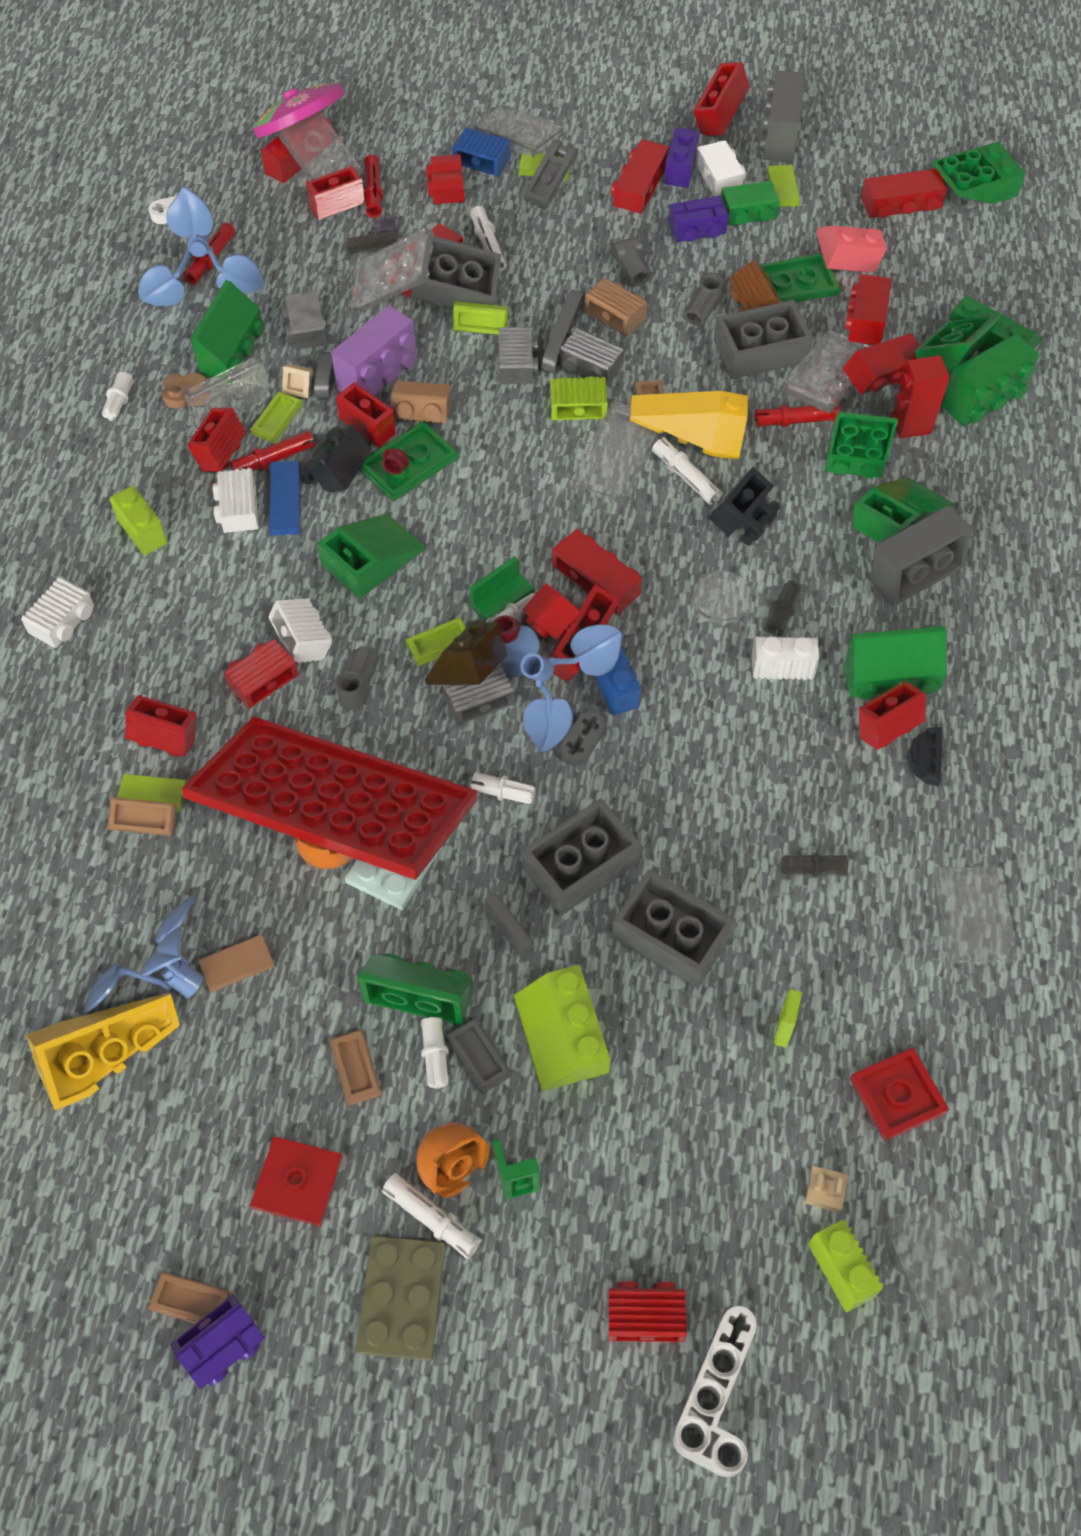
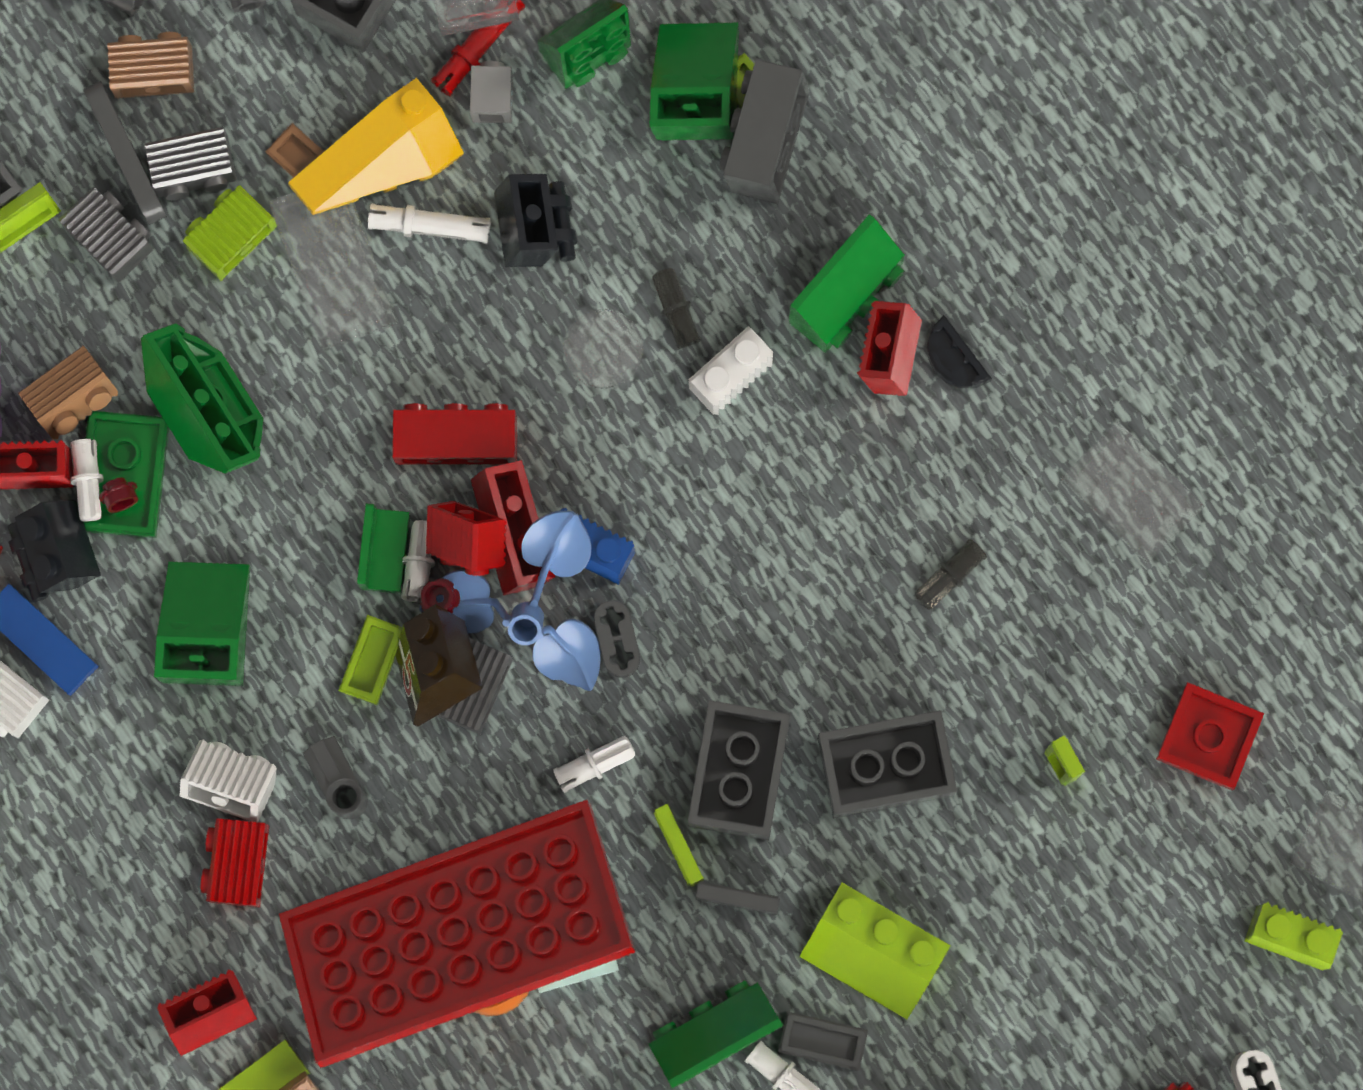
camera: 40 degrees left, 20 degrees up
(387, 440) = (86, 478): none -> white axle
(484, 450) = (201, 399): none -> green wedge
(506, 866) = (678, 845): none -> lime tile
(781, 438) = (491, 93): none -> light grey brick
(826, 1189) = (1220, 879): tan tile -> none

